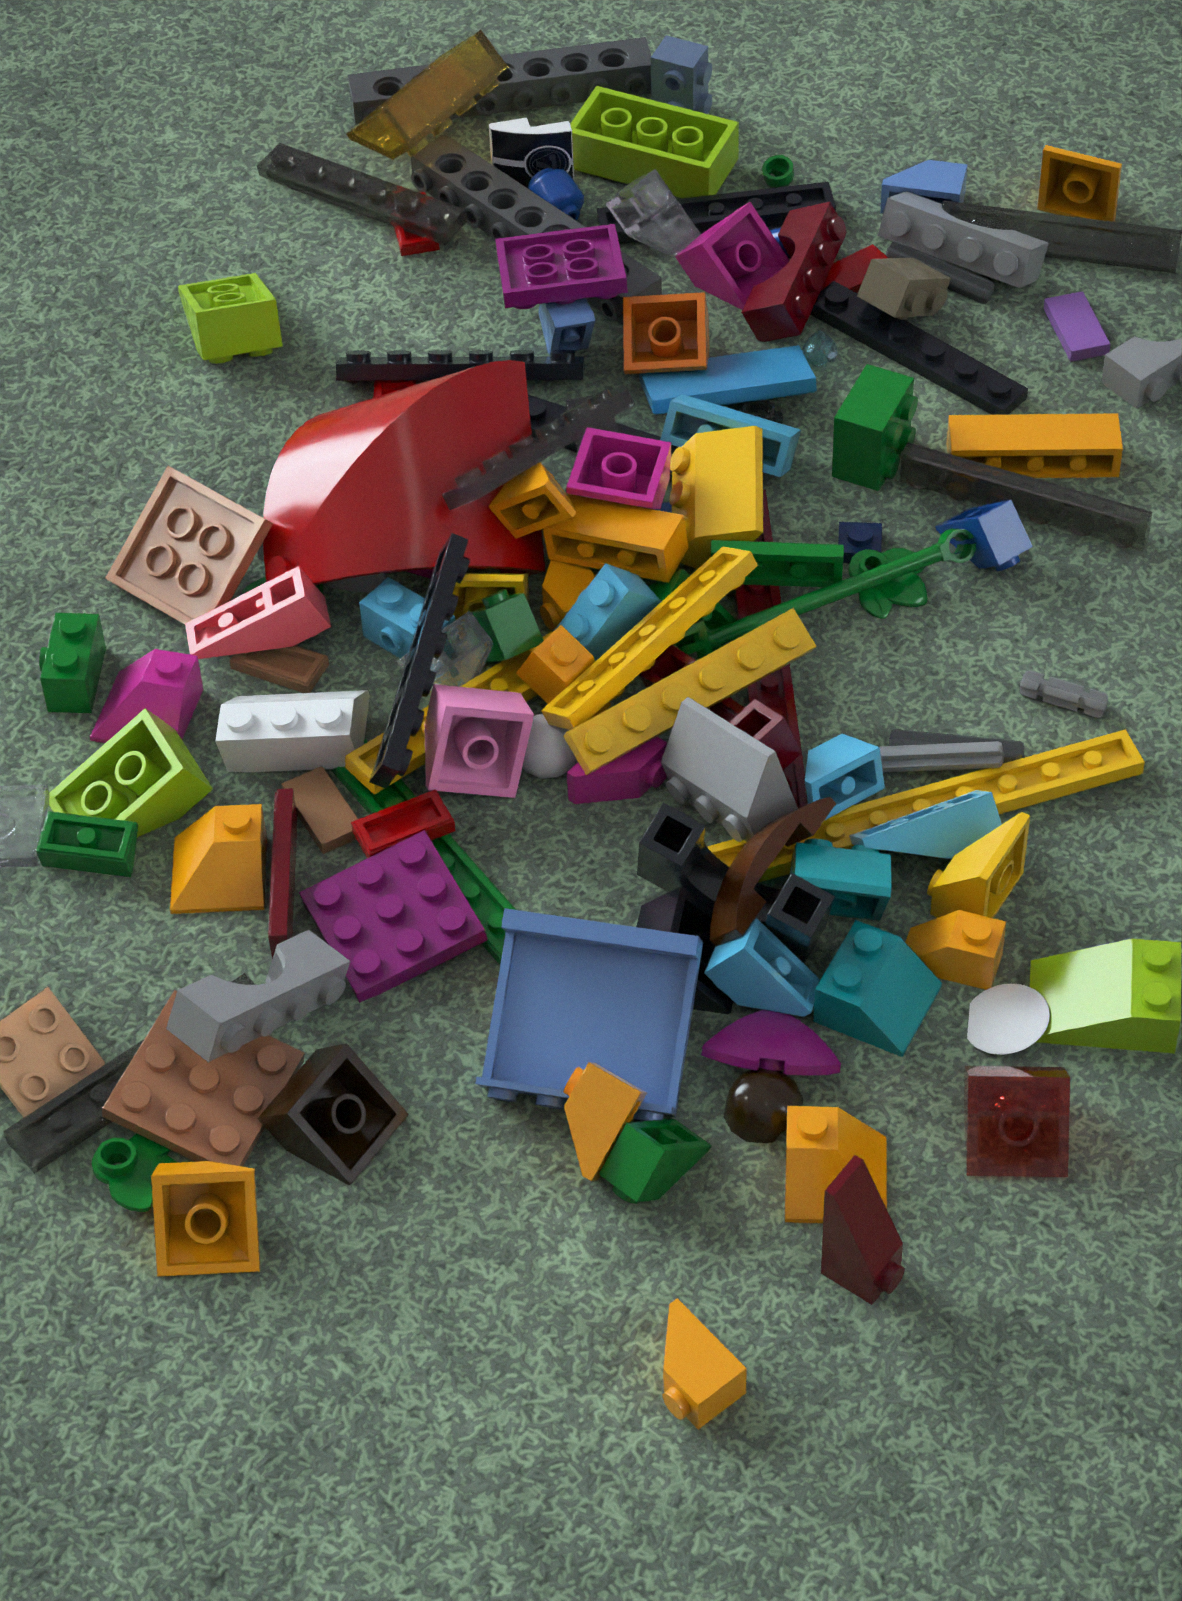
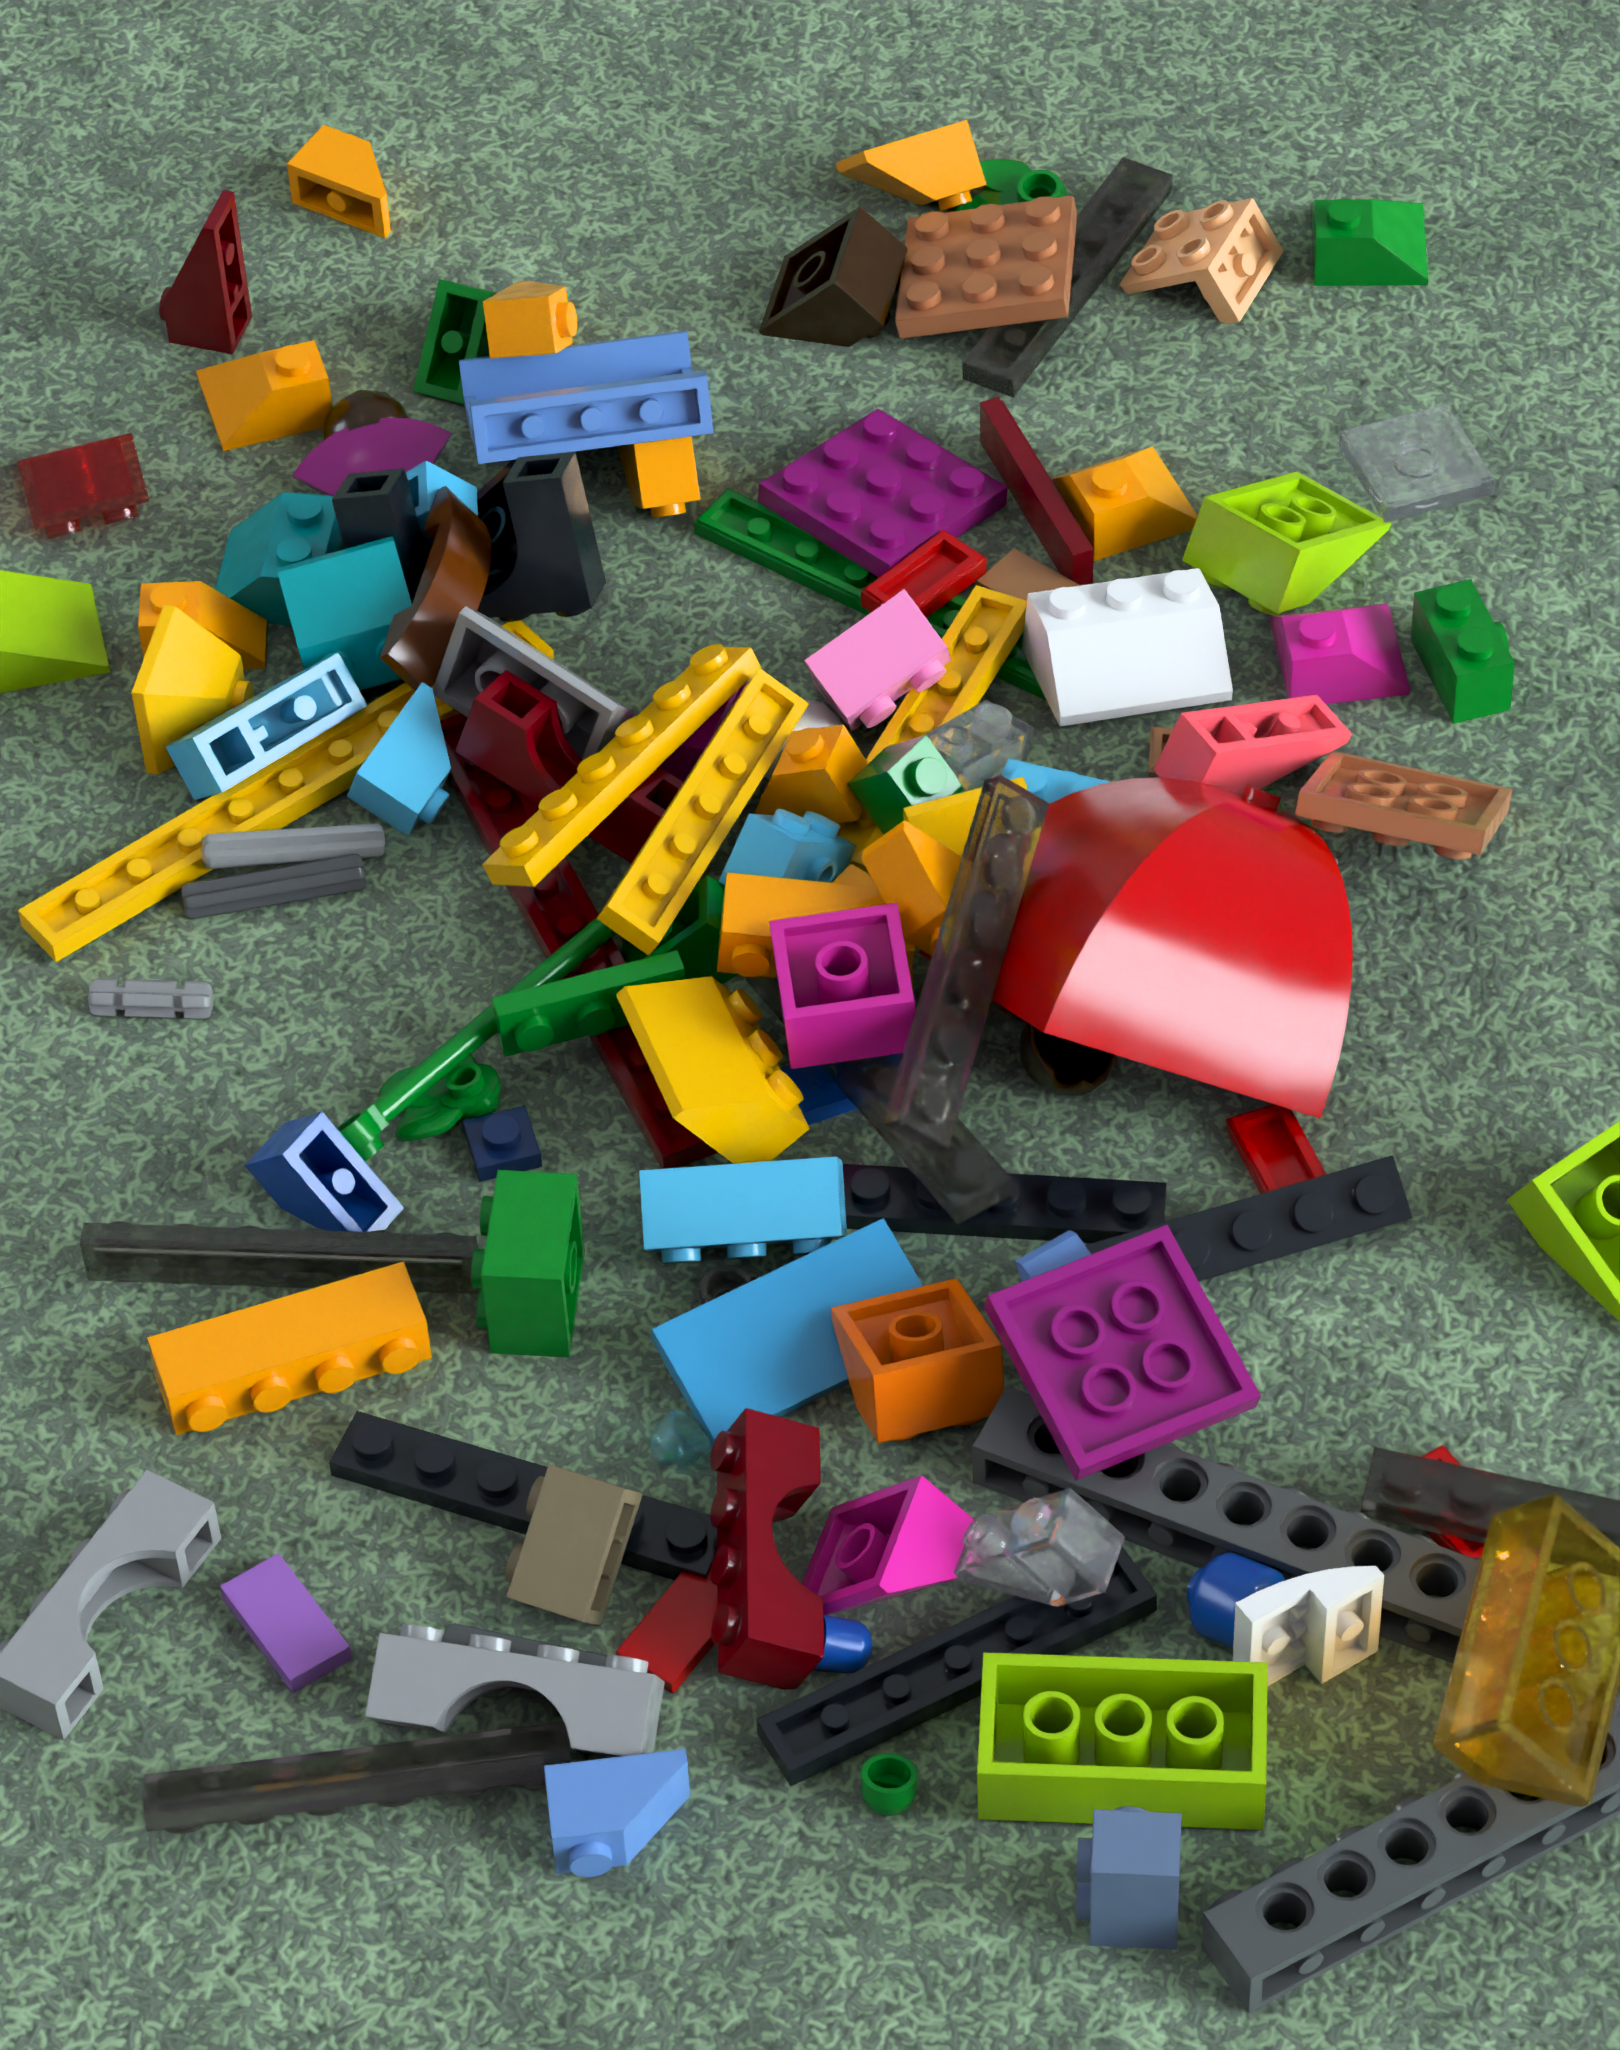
camera: 160 degrees right, 0 degrees up
(88, 844) = (1287, 455): green slope -> none
(224, 1015) = (981, 249): light grey arch -> none
(417, 677) = (979, 664): black plate -> none
(1007, 1019) = (109, 590): white sticker -> none
(1078, 185) = (348, 1866): light orange slope -> none

